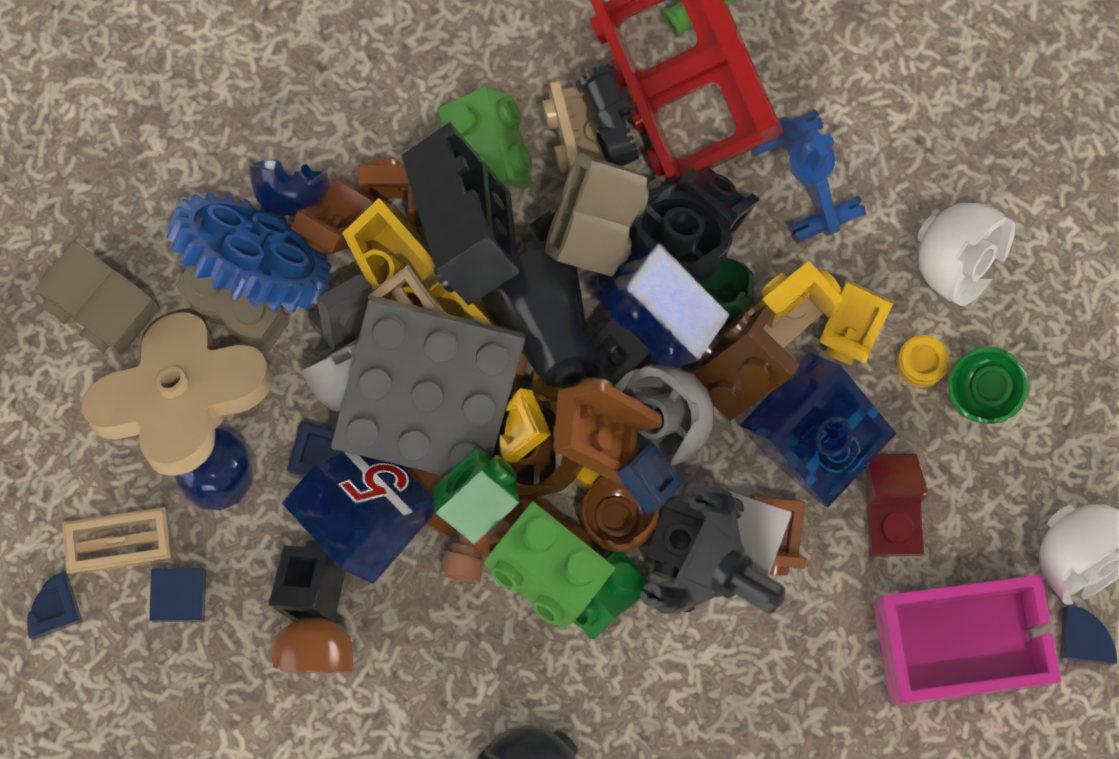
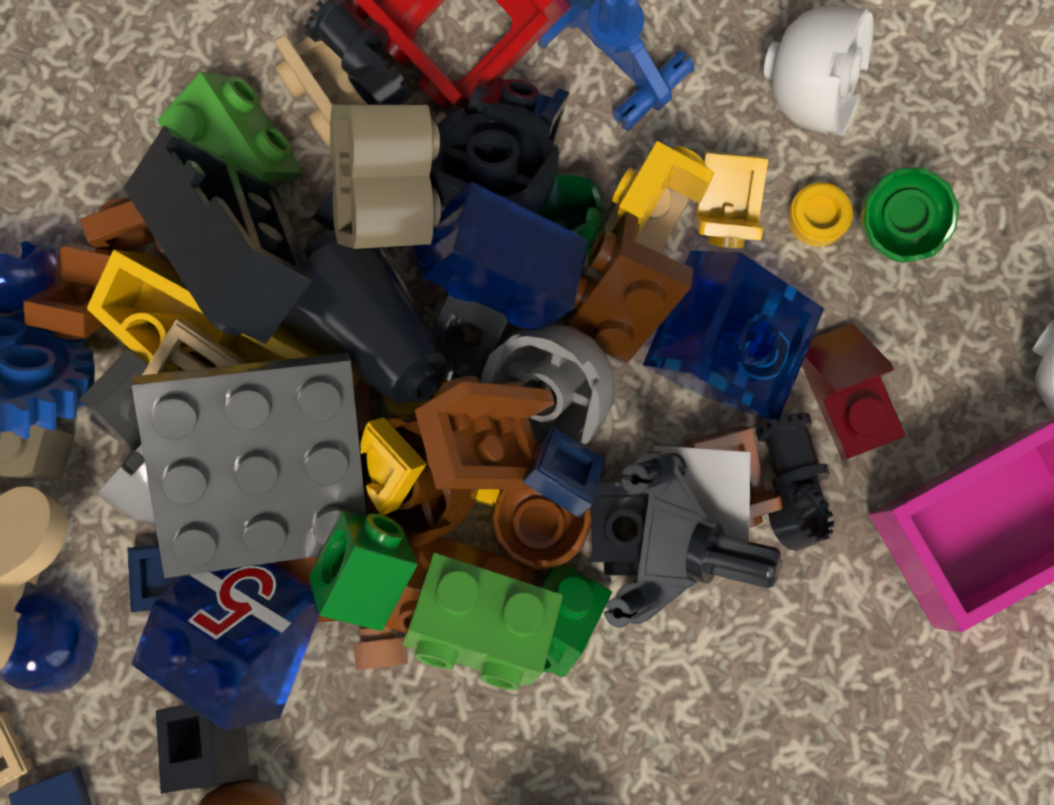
camera: 20 degrees left, 5 degrees up
(824, 556) = (797, 482): none -> black connector

